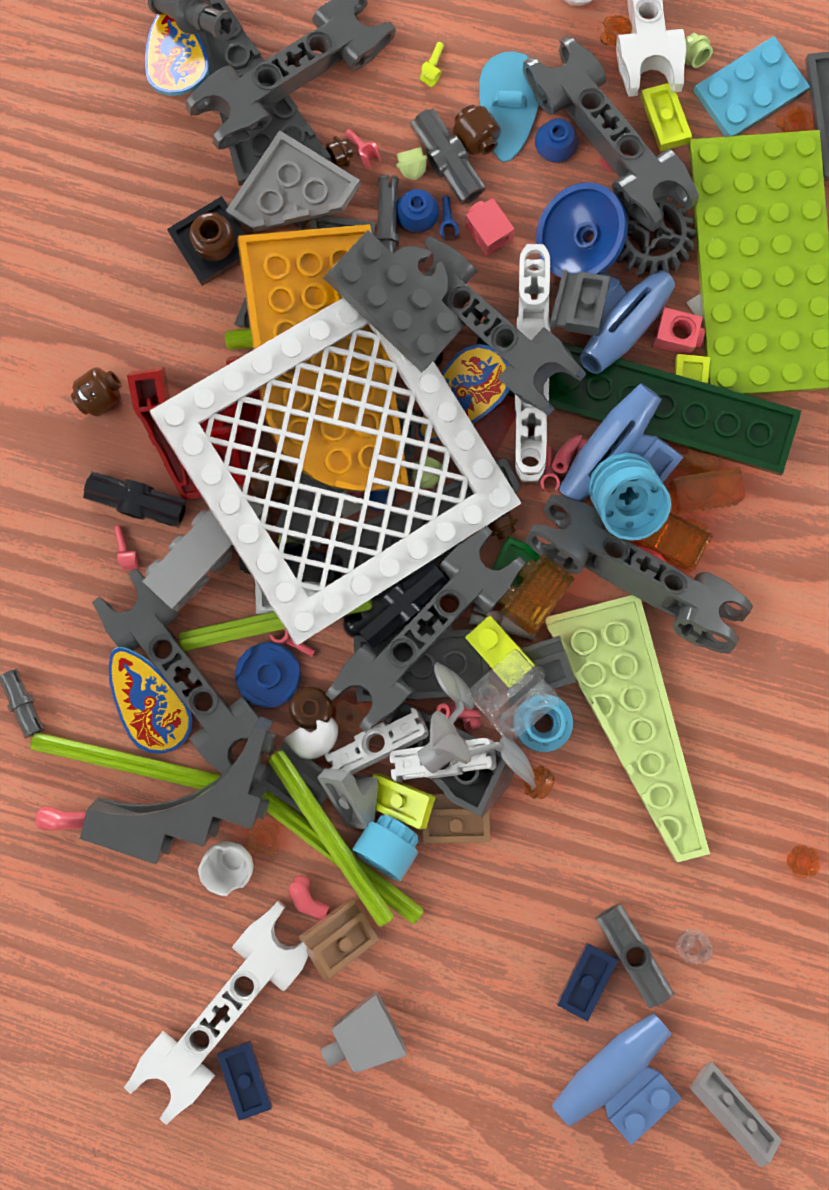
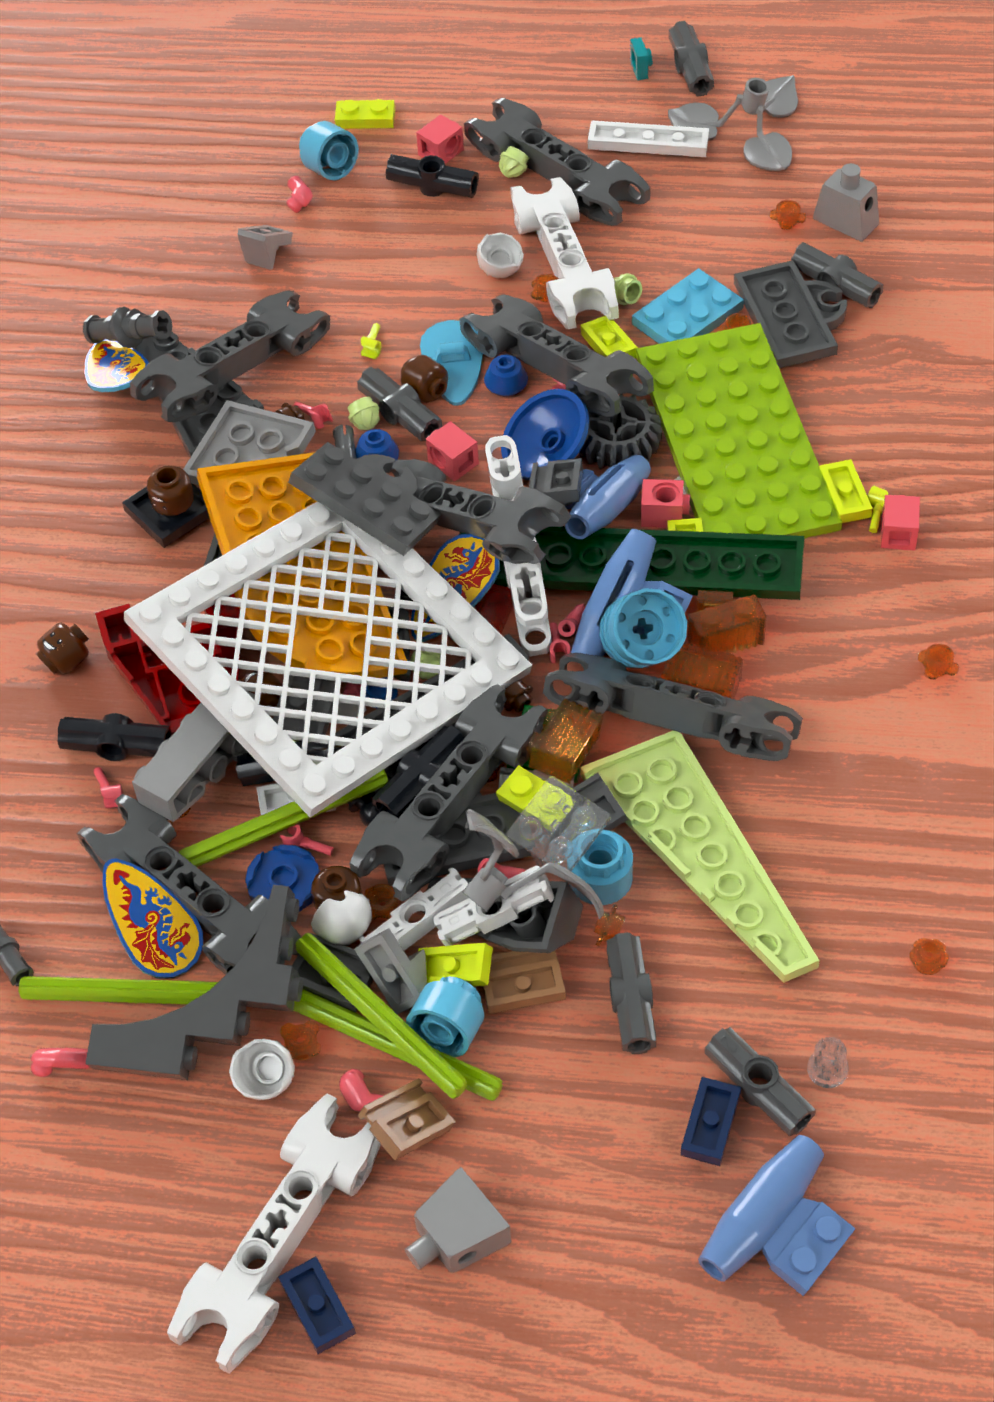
camera: 10 degrees left, 30 degrees down
(447, 219) = (408, 453): blue hand -> none
(545, 851) = (631, 993): none -> dark grey piece
(736, 1114) = (924, 1233): light grey plate -> none

